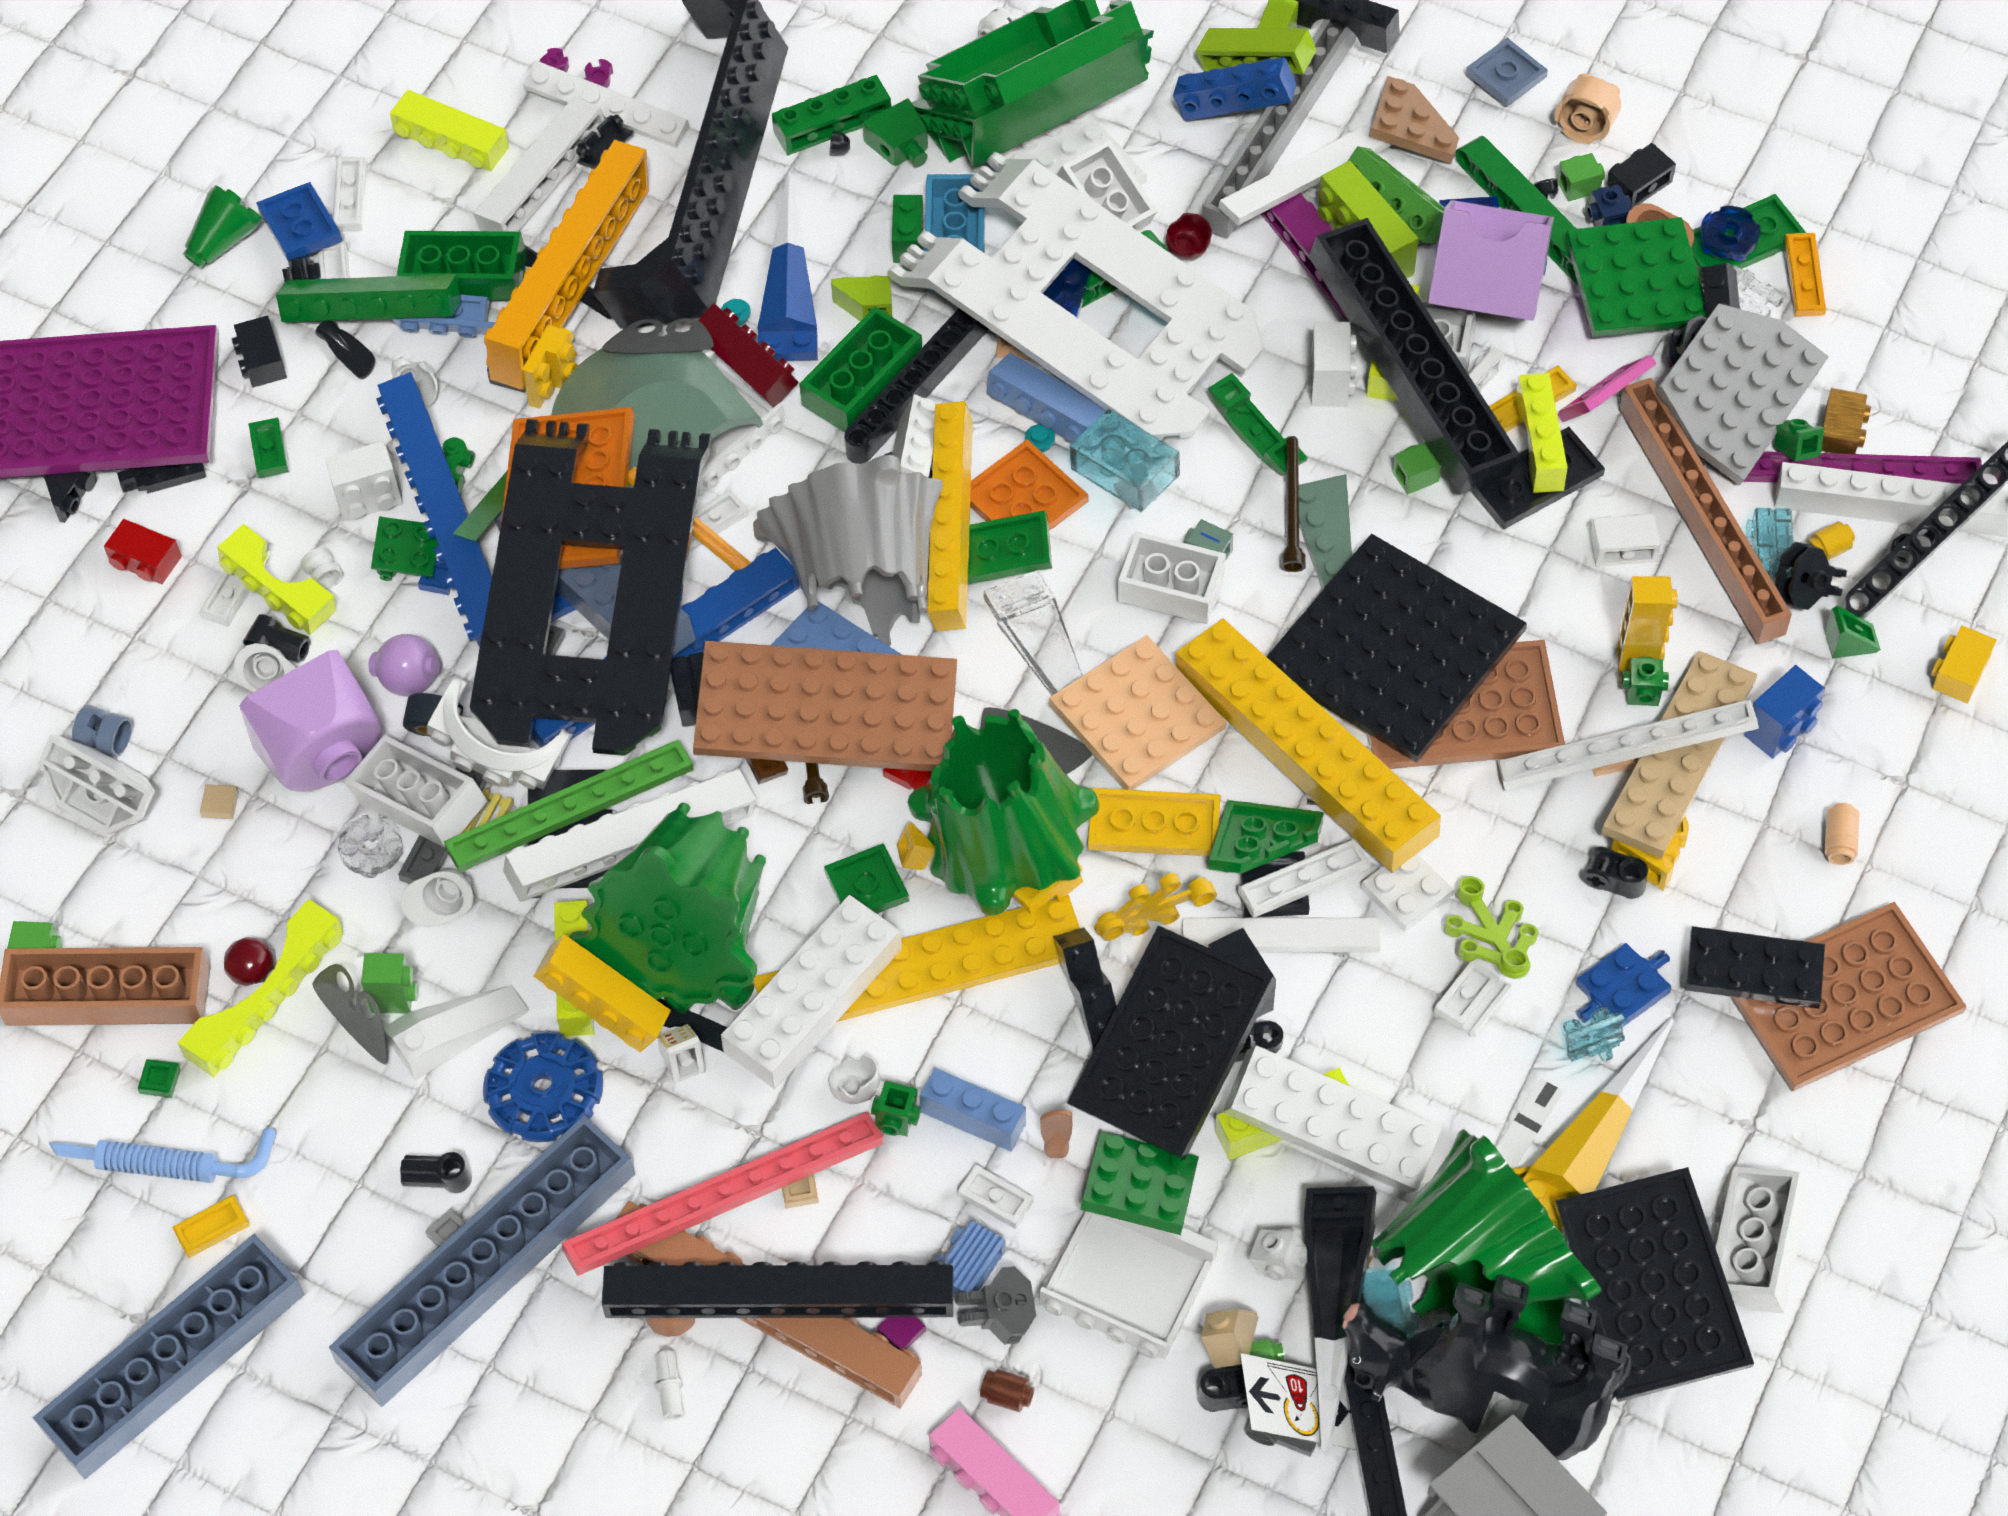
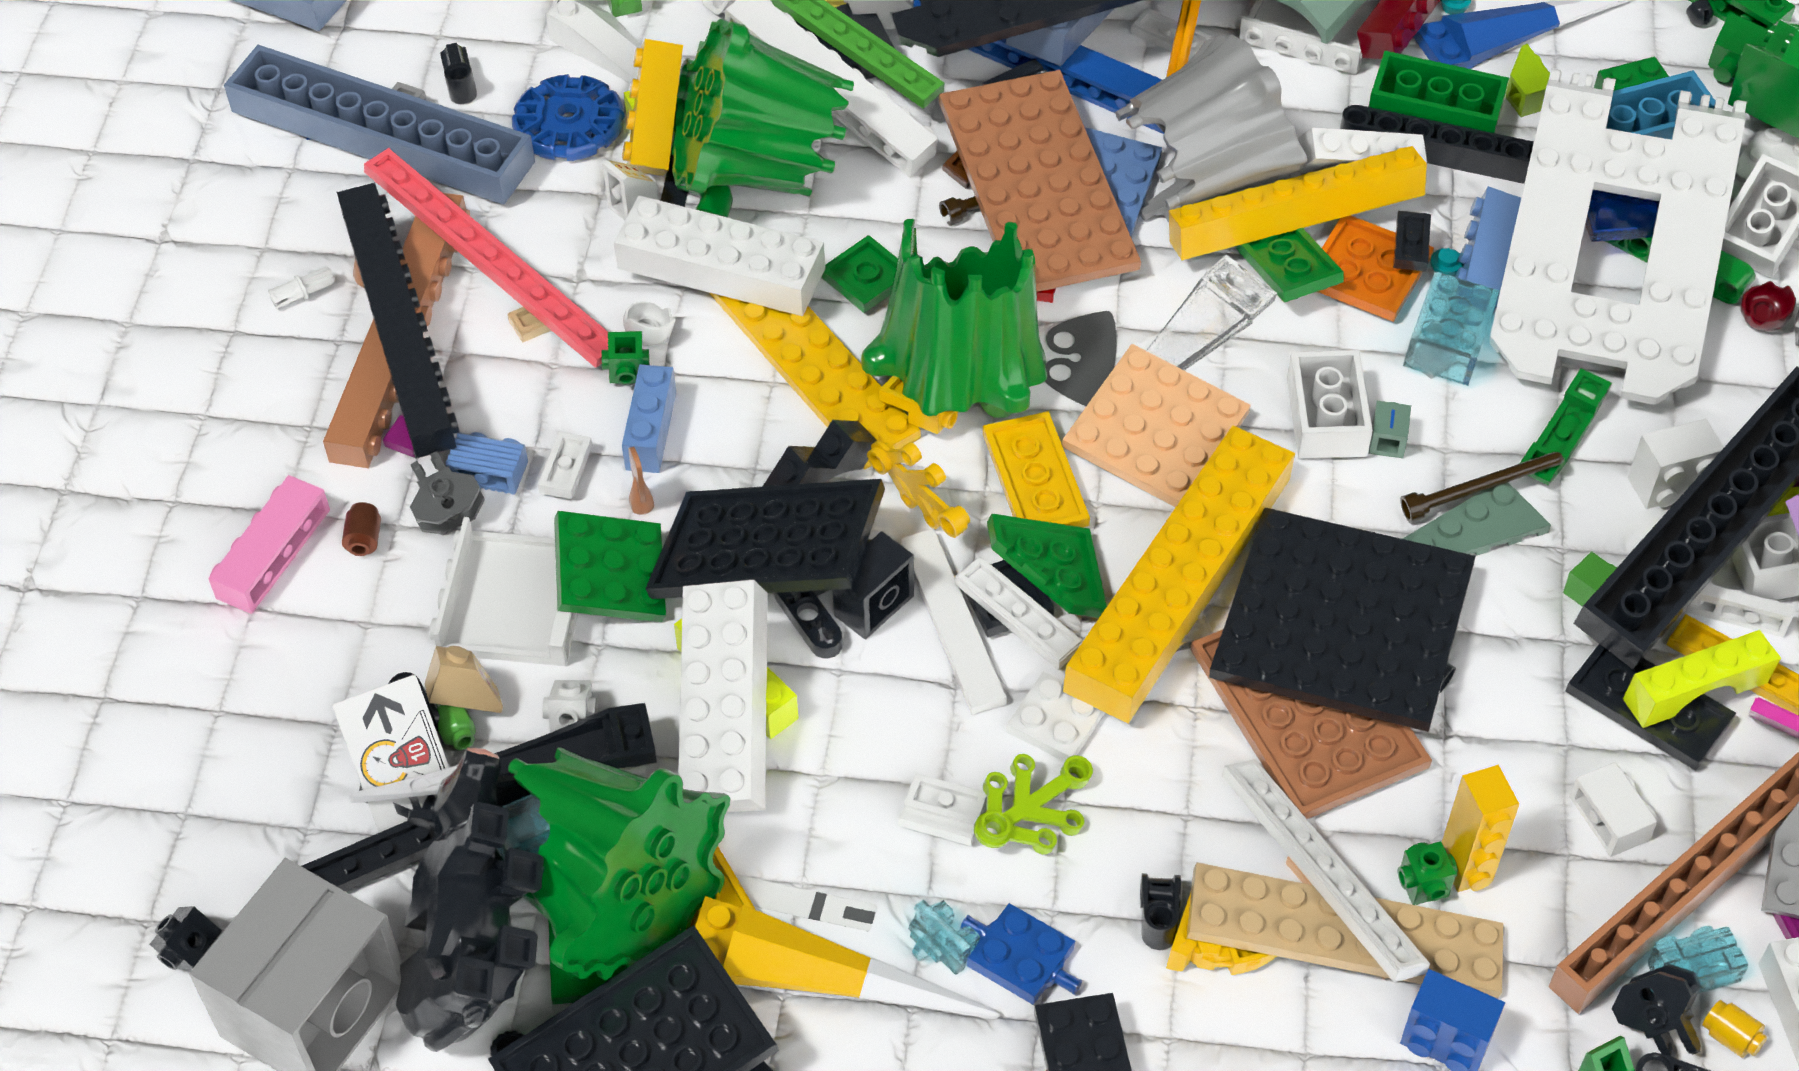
camera: 70 degrees right, 5 degrees down
(1022, 450) = (1412, 241): none -> black plate

